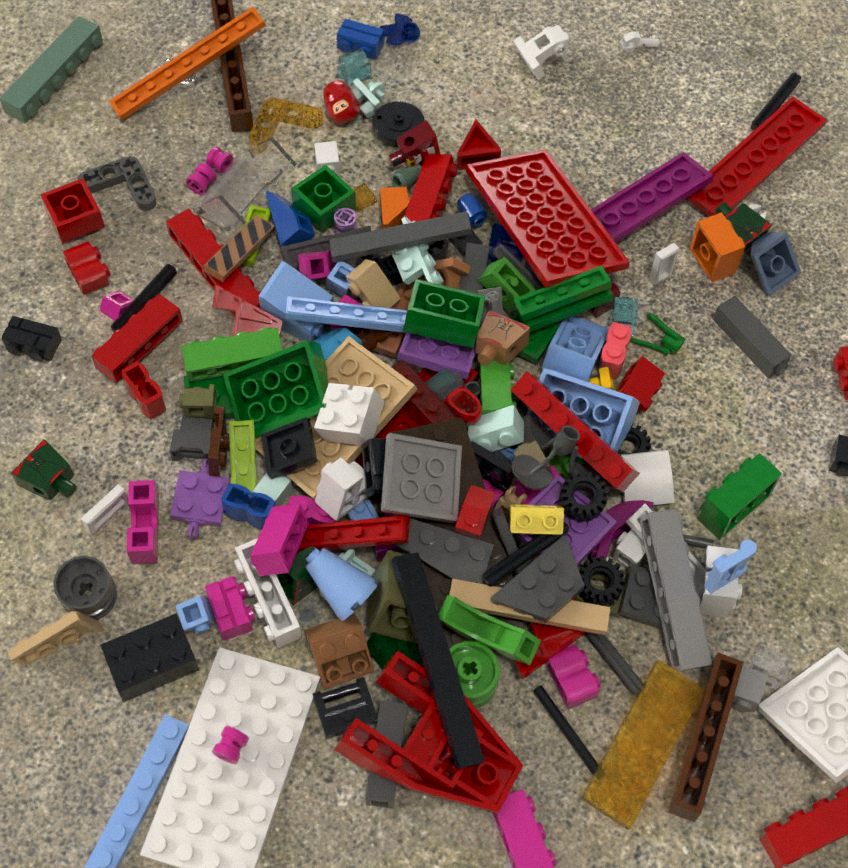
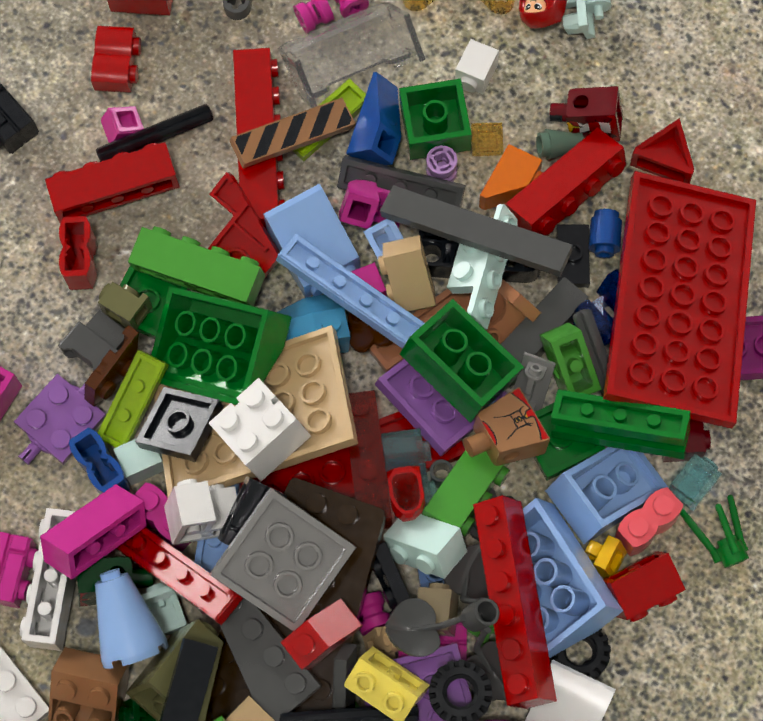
camera: 40 degrees right, 10 degrees up
(394, 120) = (596, 60): black wheel -> none

